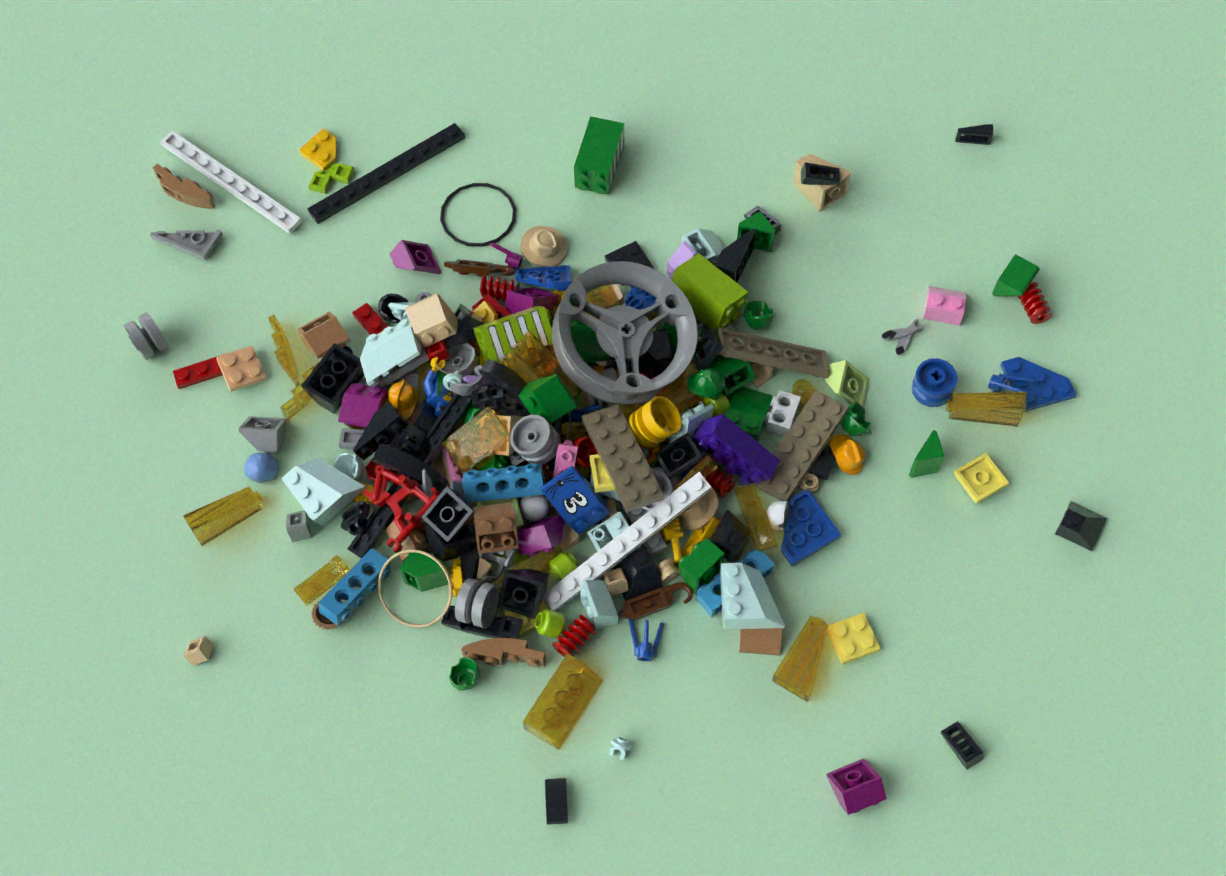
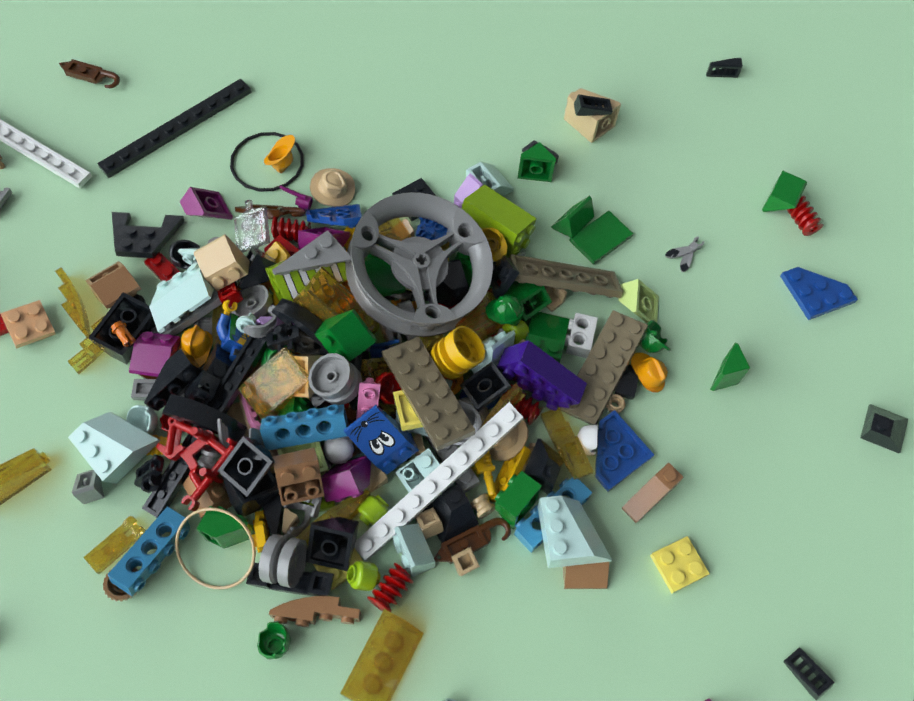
camera: 10 degrees left, 0 degrees up
(261, 467) = (48, 426): medium blue hair -> none
(264, 433) = (51, 389): light grey slope -> none
(299, 109) = (89, 72): none -> reddish brown plate
(321, 149) = (111, 109): yellow plate -> none
(334, 383) = (119, 328): none -> orange pin
(337, 172) = (112, 136): lime tile -> none
(351, 291) = (142, 240): none -> black wing
(412, 505) = (209, 457): none -> light grey wheel
(460, 285) = (251, 228): none -> clear plate
(493, 209) = (281, 155): none -> light orange piece
(528, 316) = (320, 252): none -> light grey wing
(599, 155) = (380, 100): green brick -> none
(645, 651) = (466, 597): blue plant -> none
(646, 614) = (465, 561): none -> tan slope
(704, 315) = (496, 242): none -> yellow piece
(736, 256) = (520, 184): black slope -> none
(758, 315) = (546, 241): green piece -> none
(791, 292) = (575, 218): none -> green slope
(801, 662) = (632, 594): clear yellow slope -> none
(806, 387) = (603, 311): clear yellow plate -> none
(816, 313) = (601, 237): none -> green tile
(835, 569) = (652, 492): none -> medium nougat slope
(934, 382) = (723, 296): blue wheel -> none
(944, 305) = (721, 223): bright pink slope -> none
(981, 478) = (781, 387): light yellow plate -> none
(990, 408) = (780, 317): clear yellow slope -> none
(999, 384) = (784, 293): blue plant -> none

